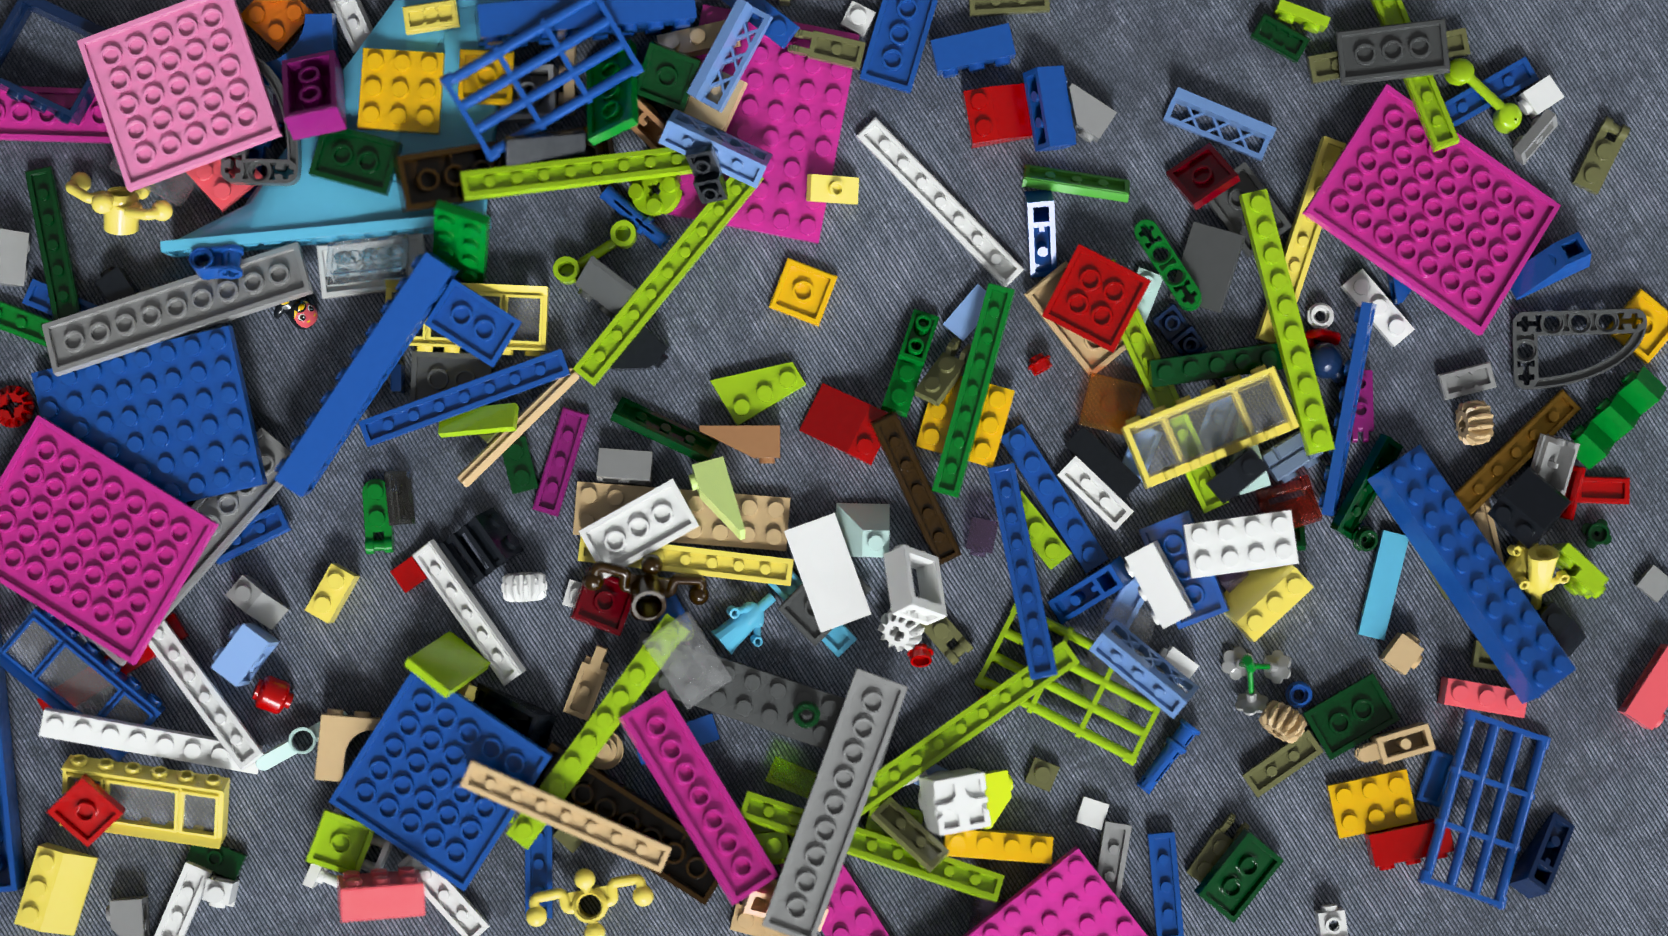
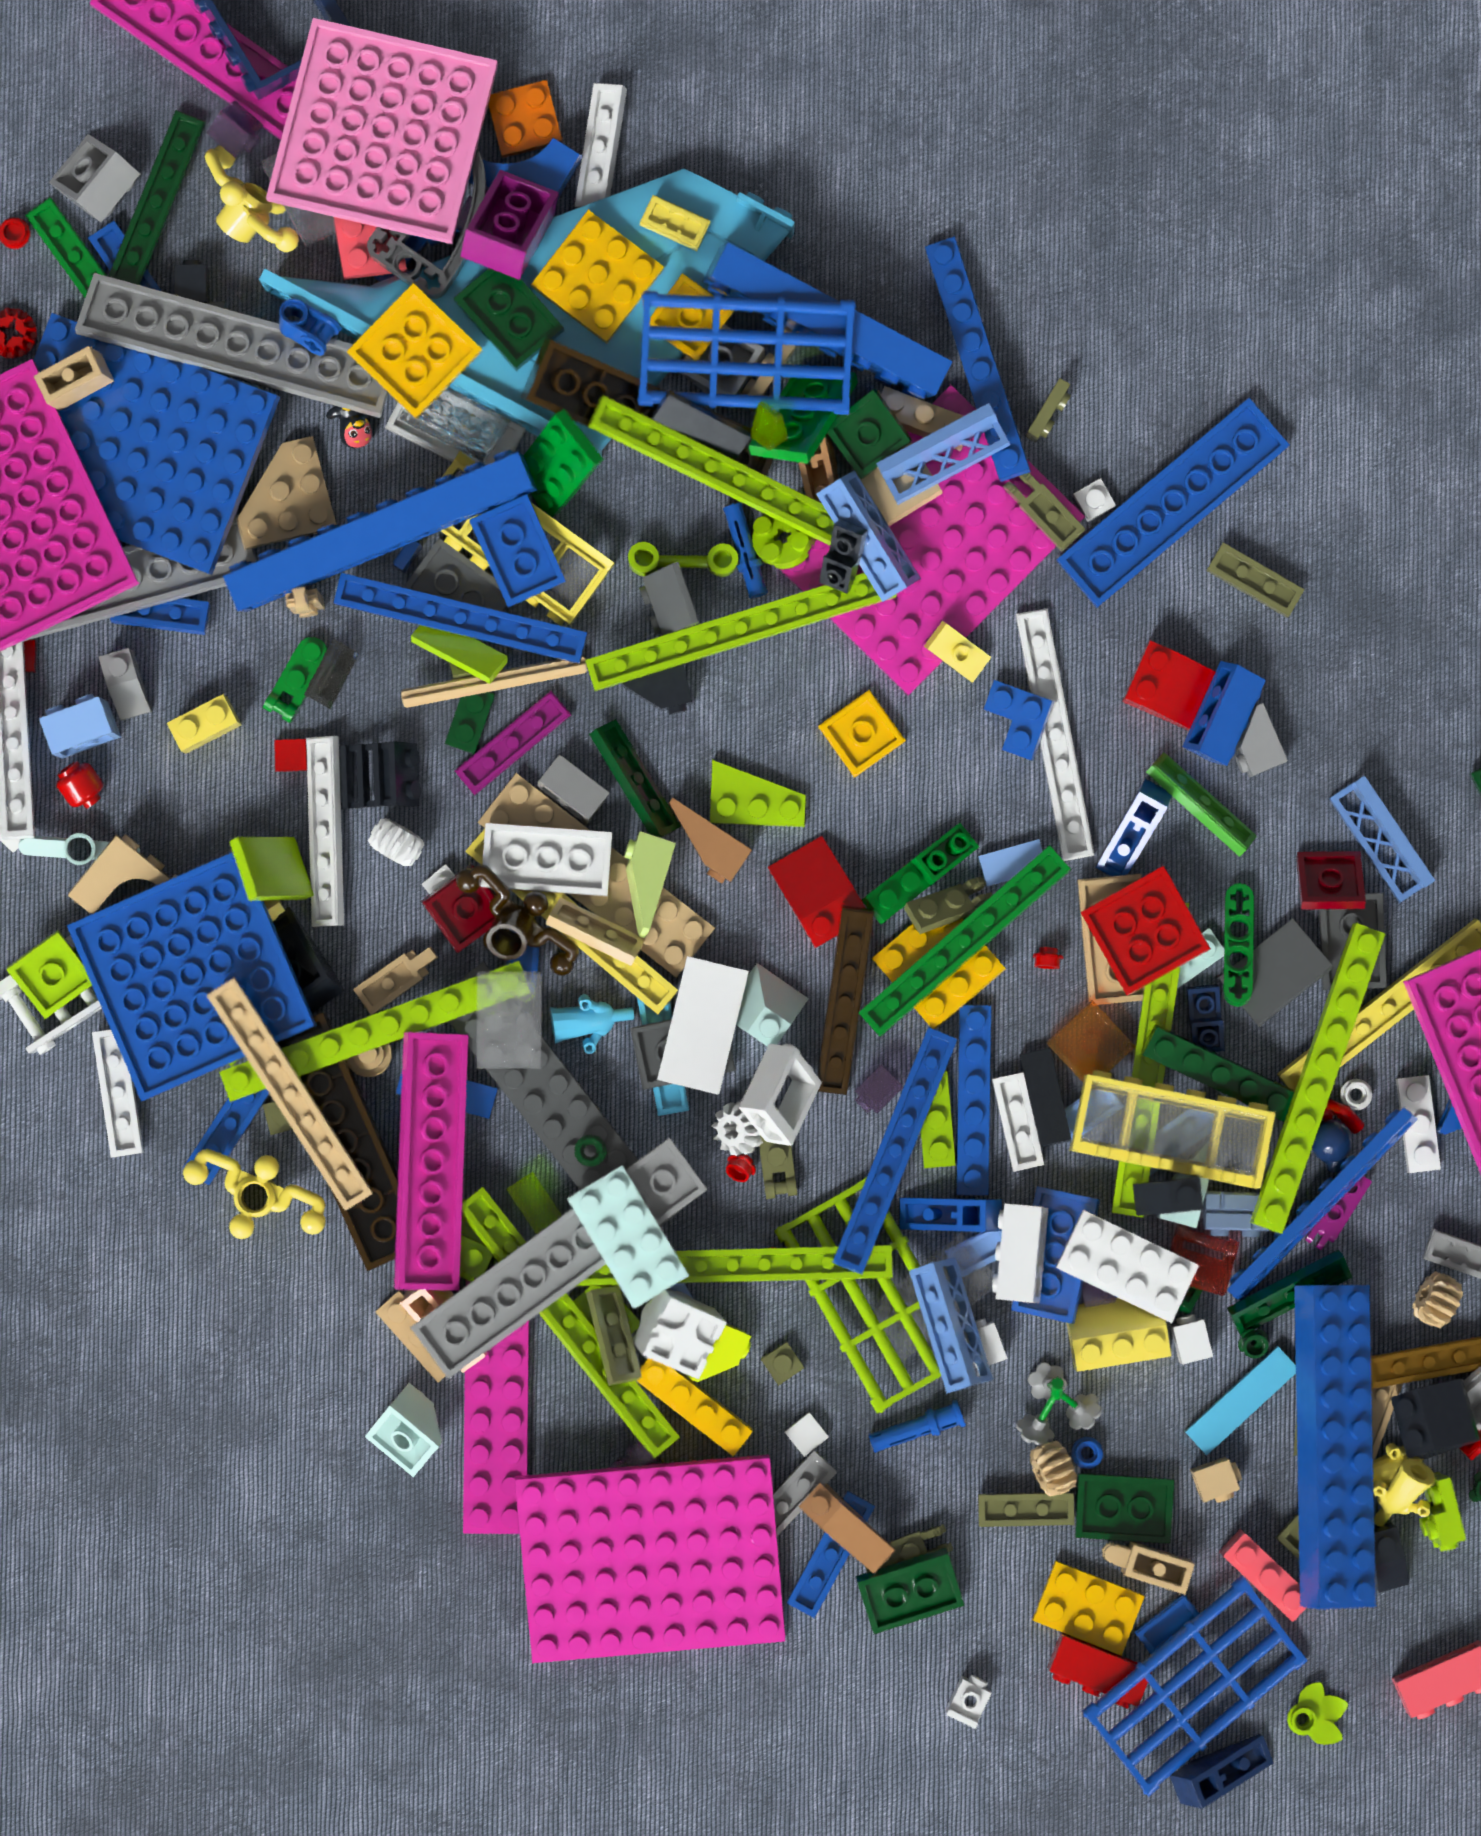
camera: 25 degrees right, 0 degrees up
(75, 409) = (74, 378): none -> tan brick
(76, 157) = (235, 129): none -> clear purple brick
(286, 394) = (288, 498): none -> tan plate
(305, 229) = (414, 351): none -> yellow plate
(346, 459) = (305, 602): none -> tan hinge
(380, 894) = (58, 1050): coral brick -> none
(593, 117) = (768, 427): none -> clear neon green slope
(707, 556) = (595, 931): none -> tan plate
(874, 758) = (628, 1237): none -> light aqua plate
(912, 201) = (1028, 717): none -> blue plate
(972, 50) = (1186, 606): blue brick -> none
(1165, 860) = (846, 1527): none -> medium nougat slope
(1319, 566) = (1191, 1339): none -> white brick
(1586, 769) = (1321, 1713): none -> lime plate

